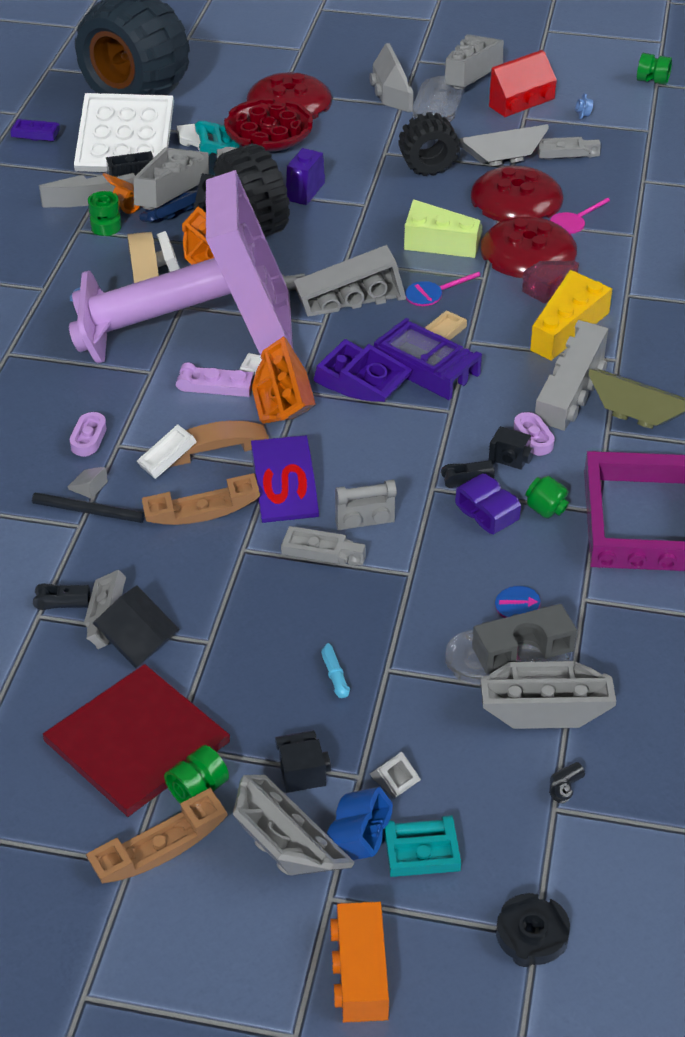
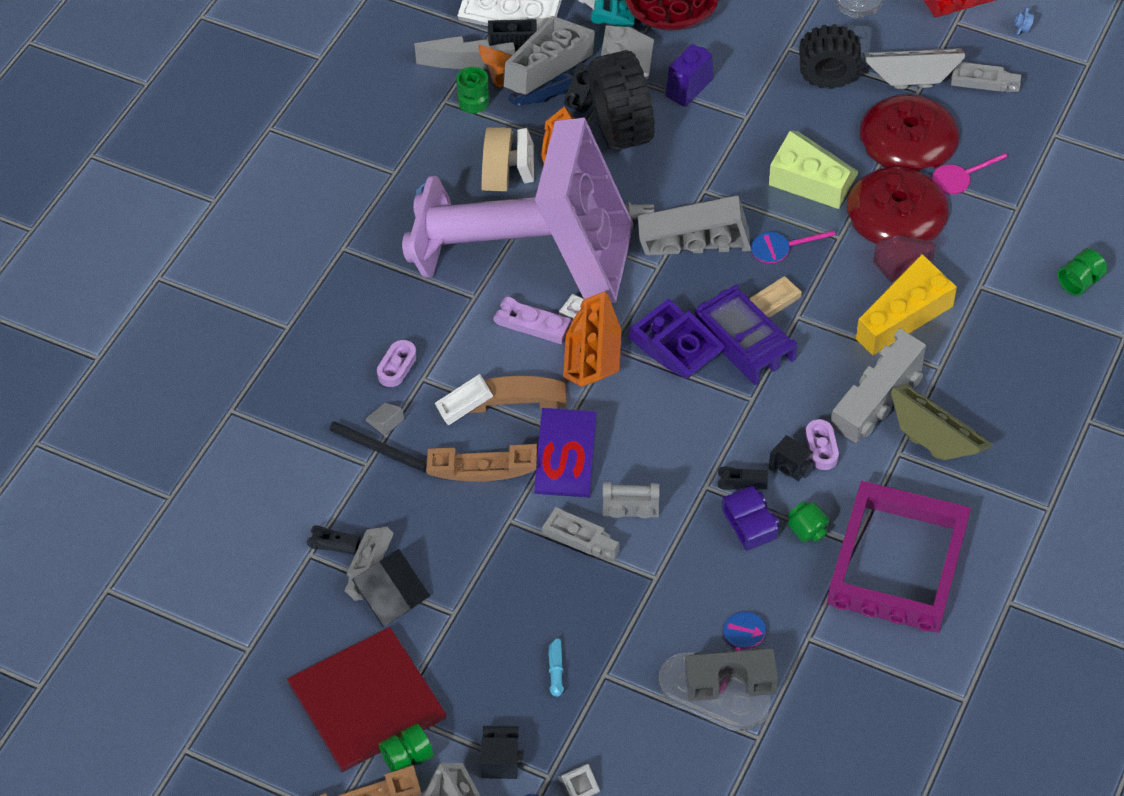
camera: 15 degrees right, 10 degrees up
(547, 694) = (731, 734): light grey wedge -> none

